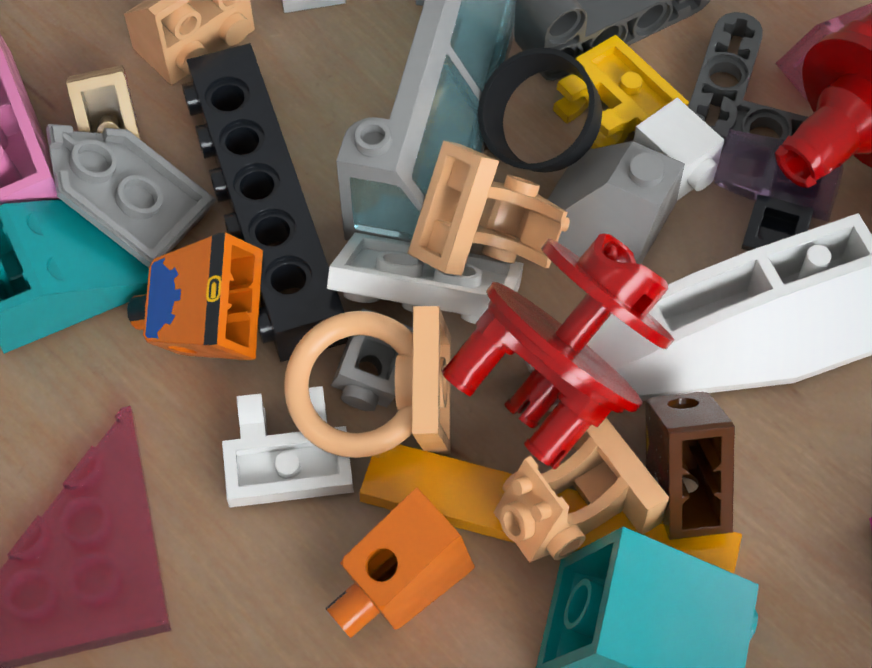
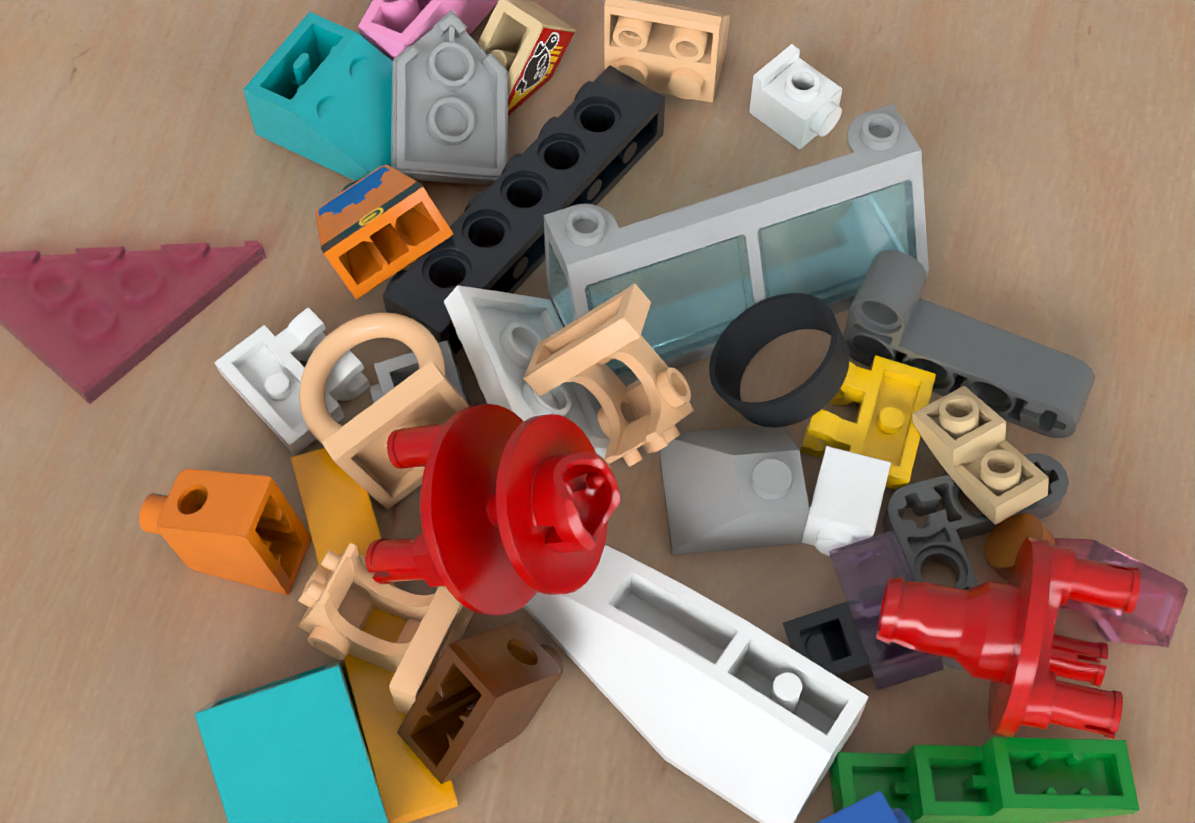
camera: 55 degrees right, 0 degrees up
(714, 51) = (974, 452): none -> tan slope
(779, 74) = (1007, 537): none -> dark orange tile

